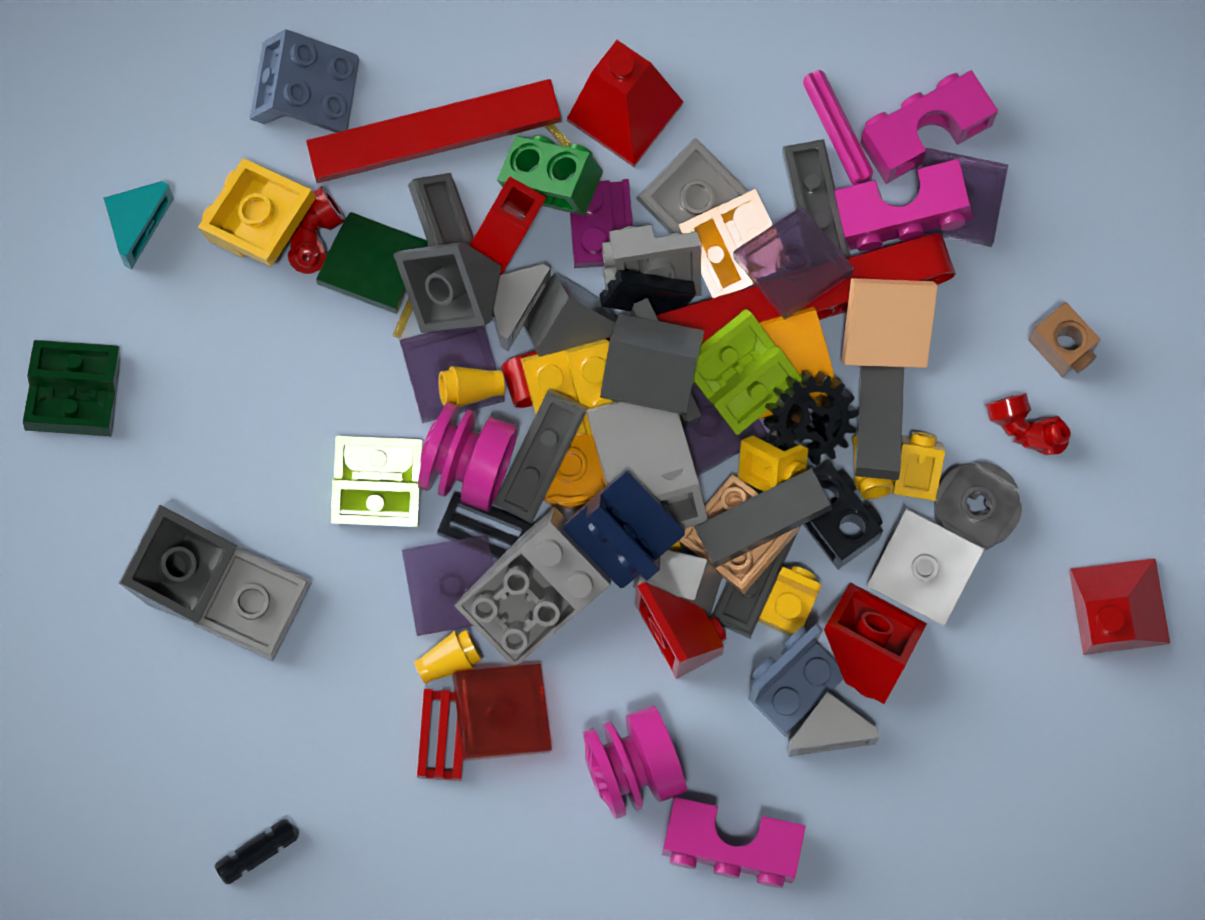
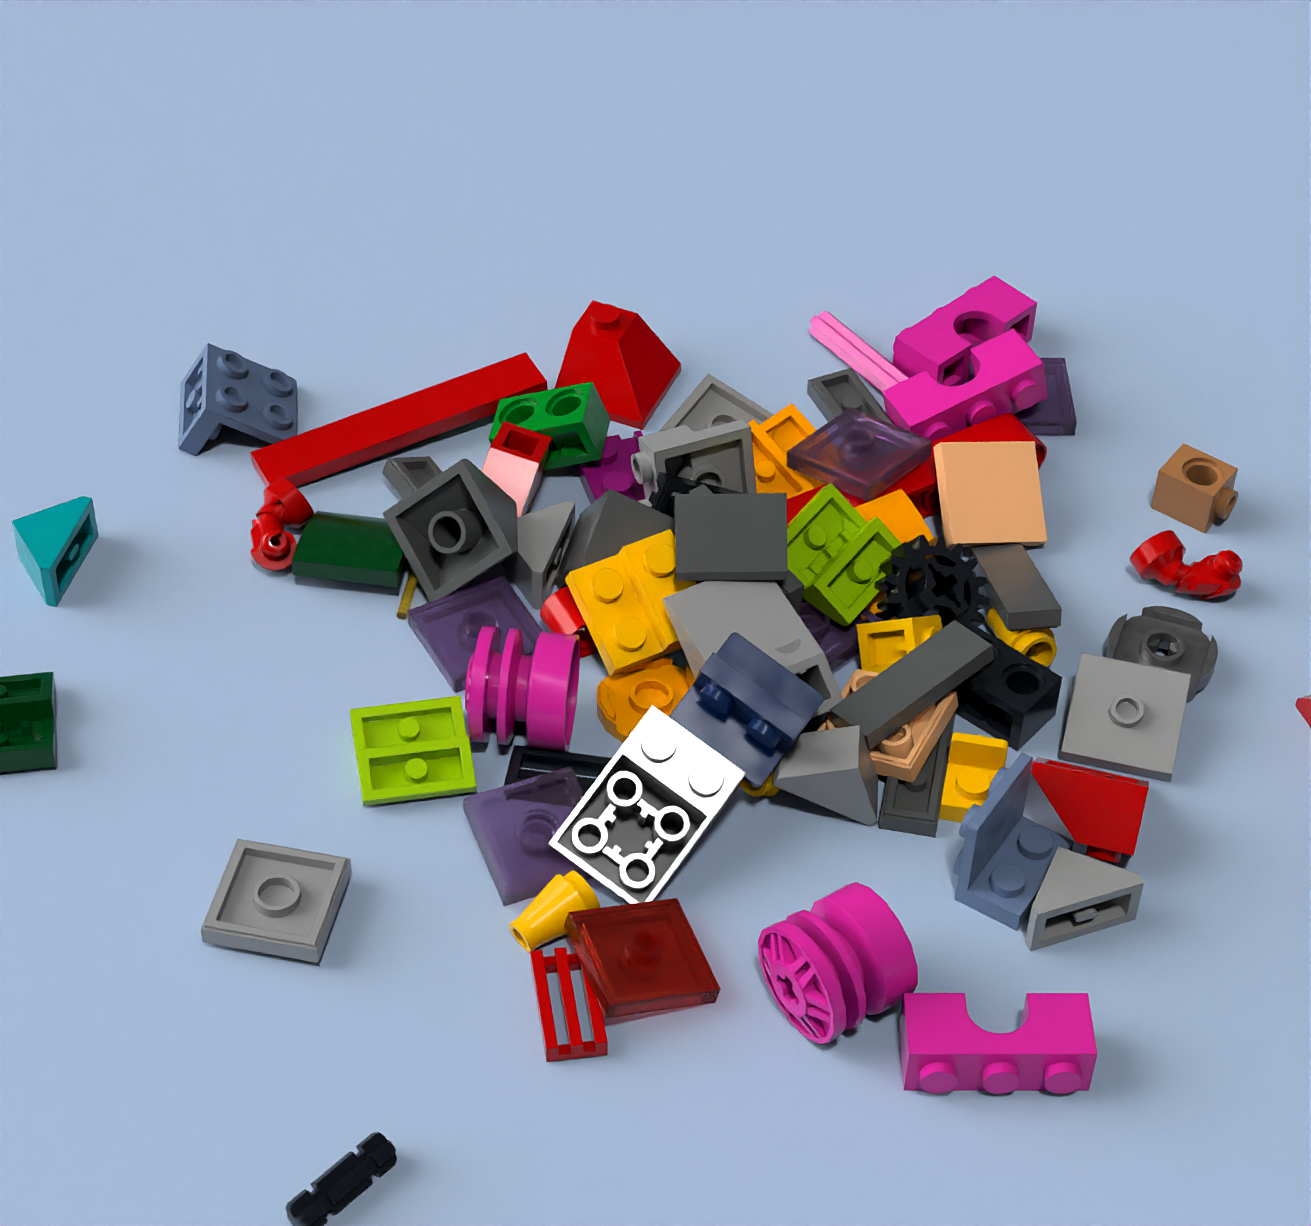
camera: 10 degrees left, 30 degrees down
(177, 565) = (166, 866): dark grey slope -> none
(256, 212) = (202, 511): yellow plate -> none
(469, 385) = (506, 616): yellow cone -> none
(540, 455) = (615, 673): dark grey tile -> none
(679, 629) = (839, 821): red slope -> none
(920, 466) = (1082, 625): yellow bracket -> none

